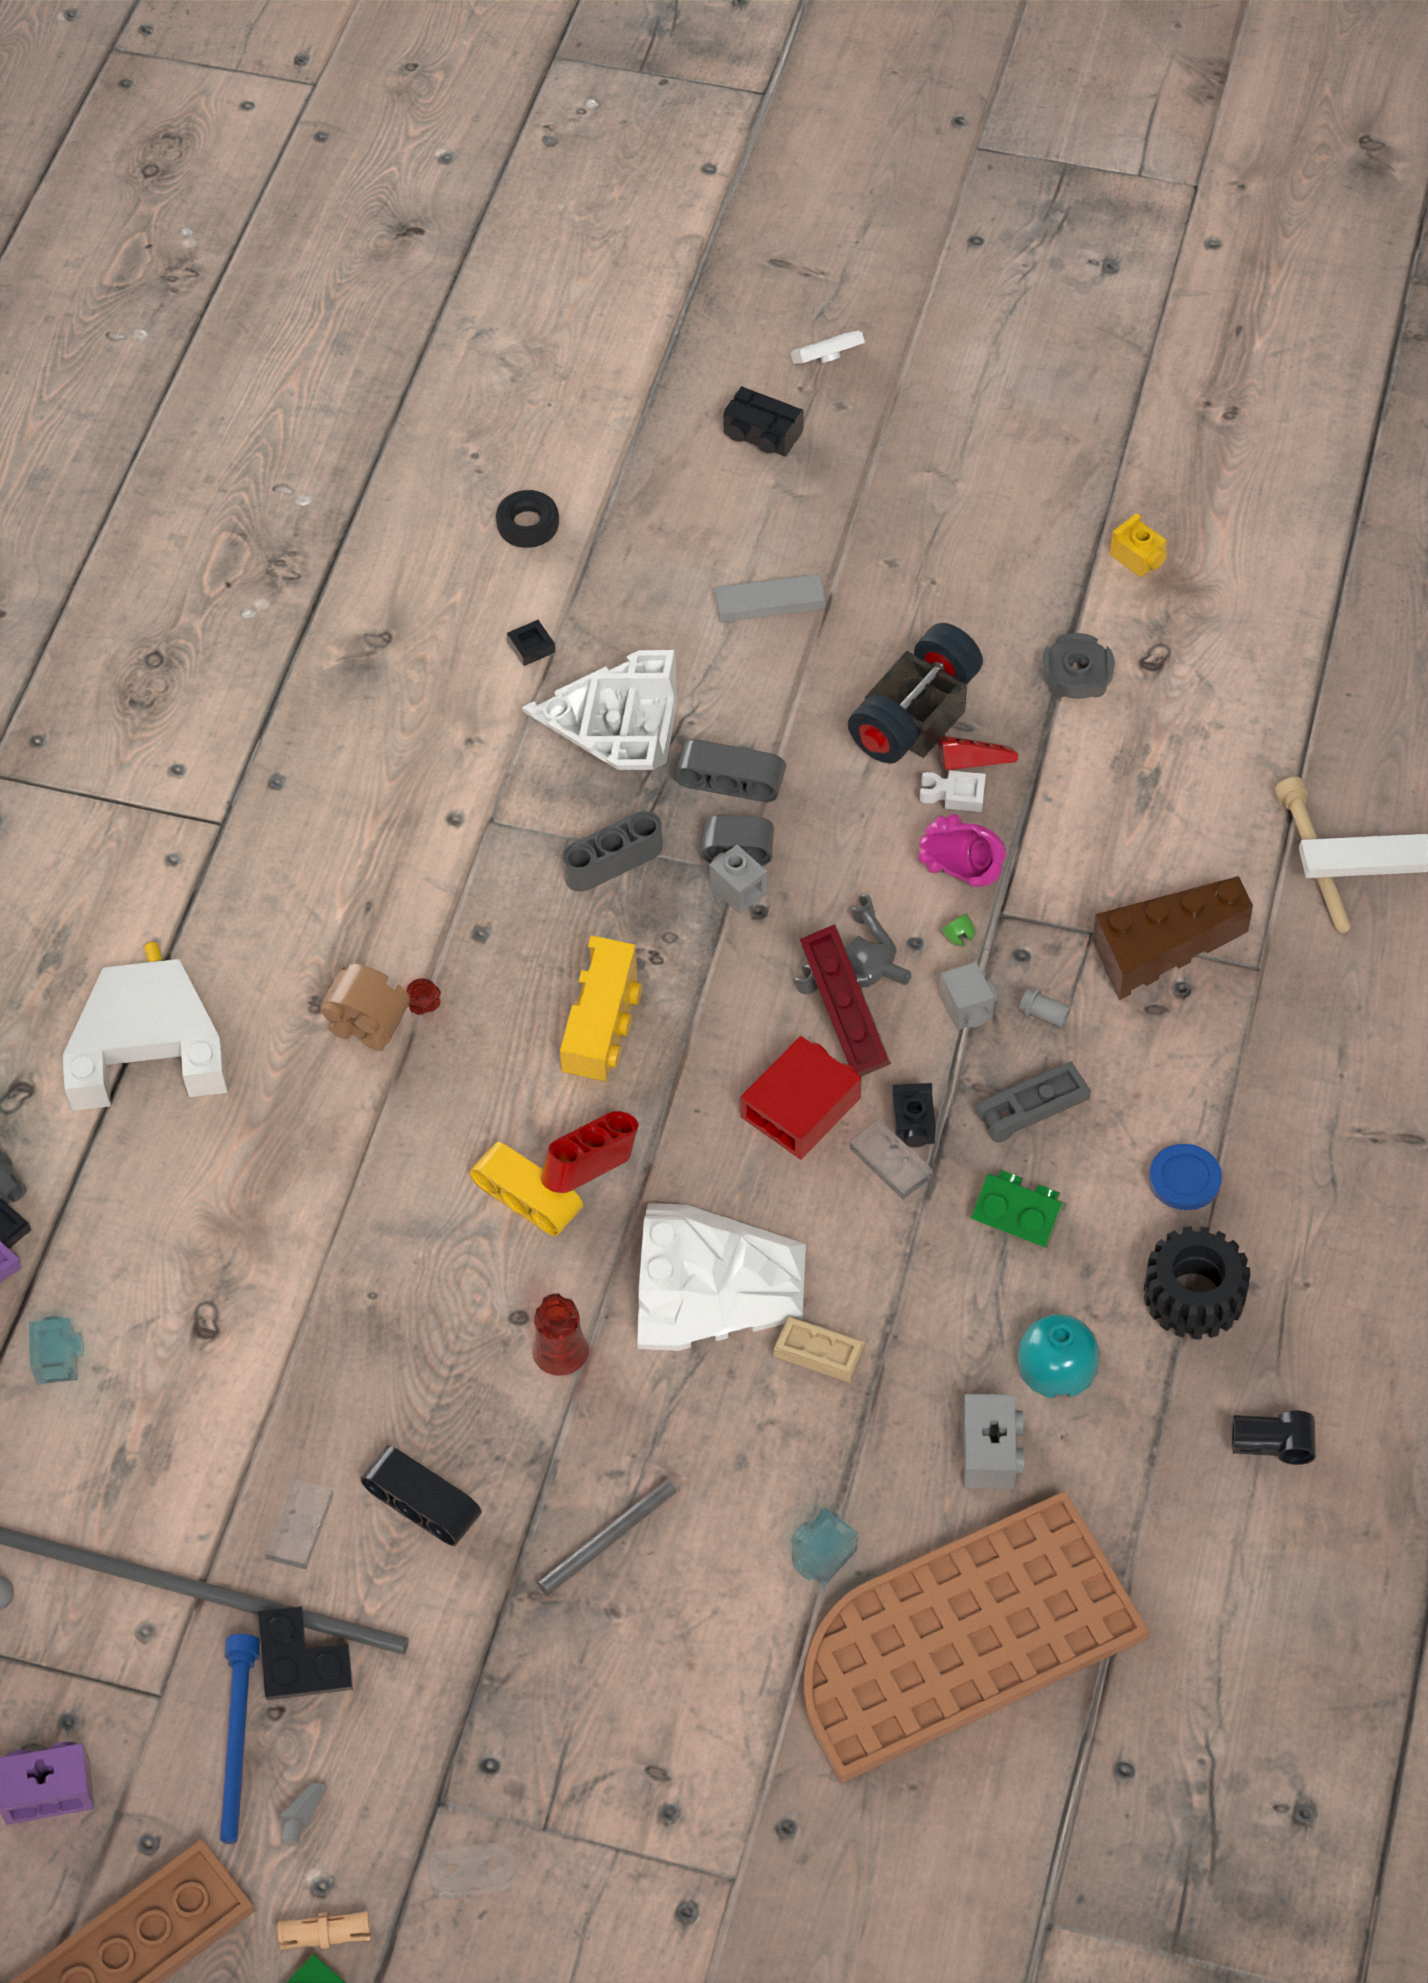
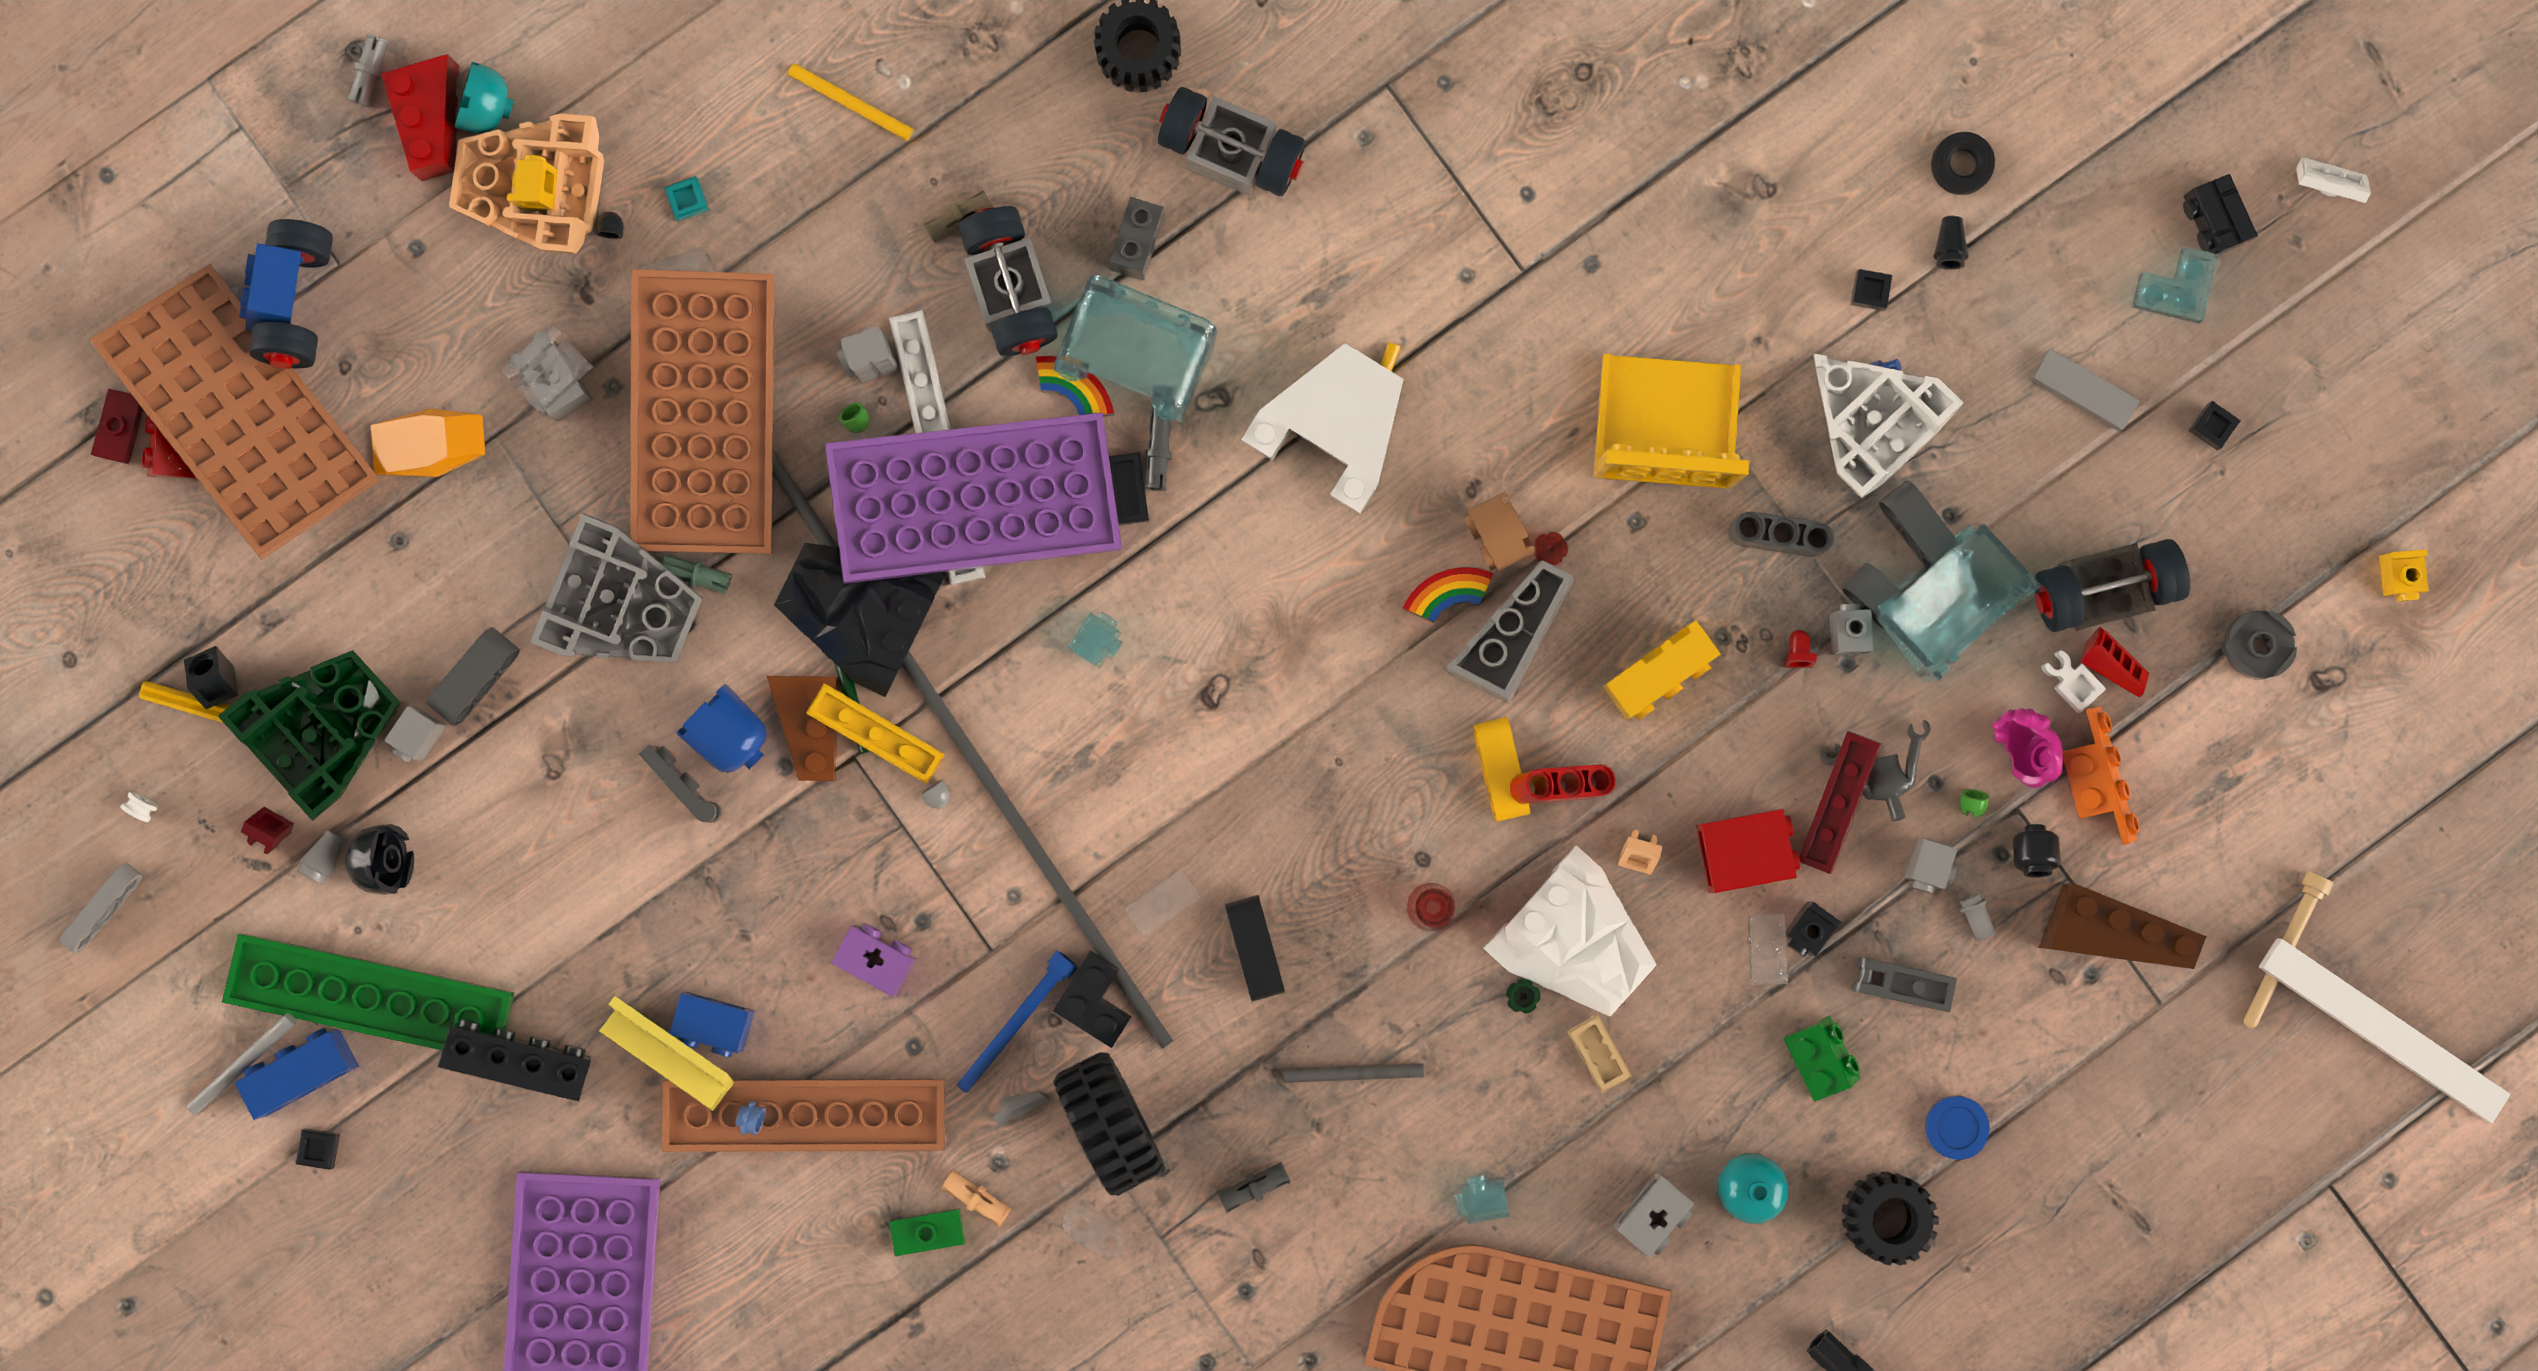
camera: 35 degrees right, 30 degrees up
(356, 1091) = (1447, 589): none -> tile
(397, 1723) = (1108, 1123): none -> black tyre
(444, 1083) = (1509, 641): none -> light grey wedge
(448, 839) = (1668, 422): none -> yellow bracket
(568, 573) = (1951, 244): none -> black cone
(596, 1706) = (1254, 1187): none -> dark grey pin
(708, 1345) = (1532, 996): none -> dark green plate
(711, 926) = (1799, 651): none -> red piece
(711, 1166) = (1639, 854): none -> light nougat tile
(783, 489) = (2184, 295): none -> clear light blue plate
(802, 788) = (1955, 602): none -> clear light blue windscreen
(894, 551) = (2214, 425): none -> black plate
(1041, 844) = (2097, 779): none -> orange bracket
(1045, 924) = (2036, 851): none -> black head

